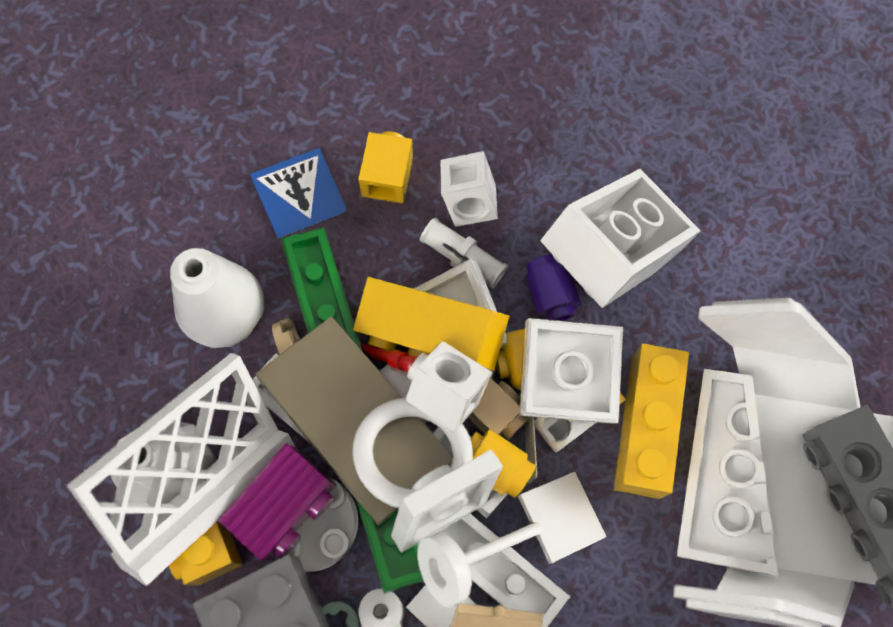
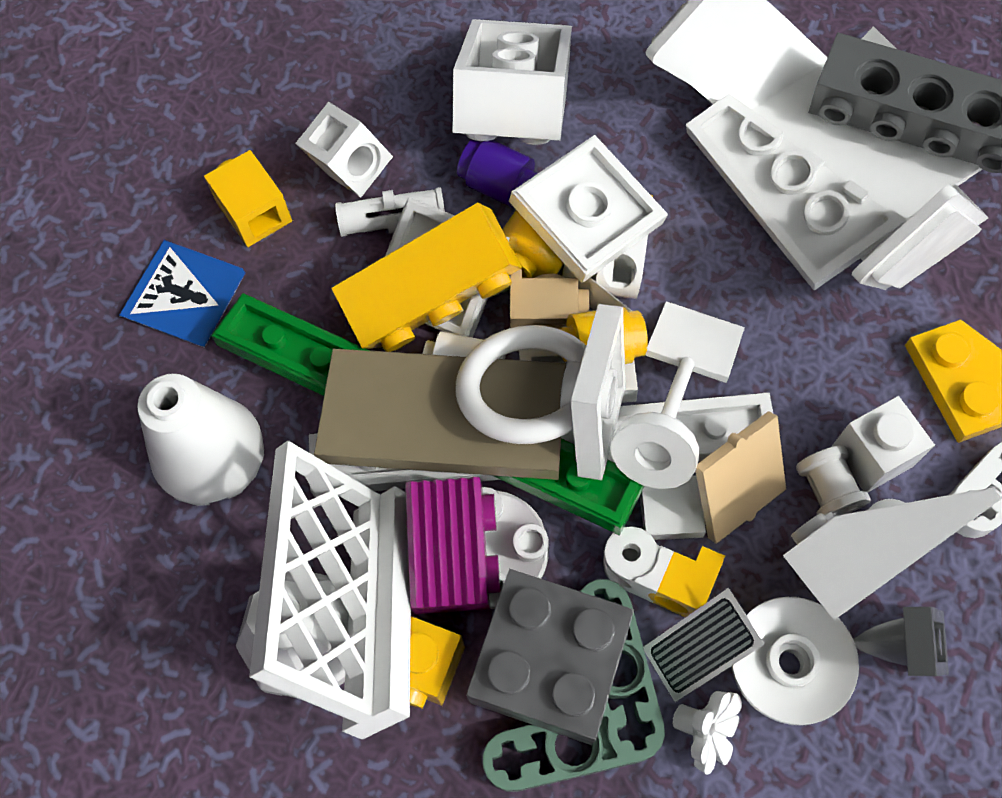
camera: 40 degrees left, 5 degrees down
(288, 338) = (302, 416): tan tile -> none
(396, 359) = (432, 330): red piece -> none
(446, 385) = (500, 301): white brick -> none
(651, 422) = (702, 211): yellow brick -> none

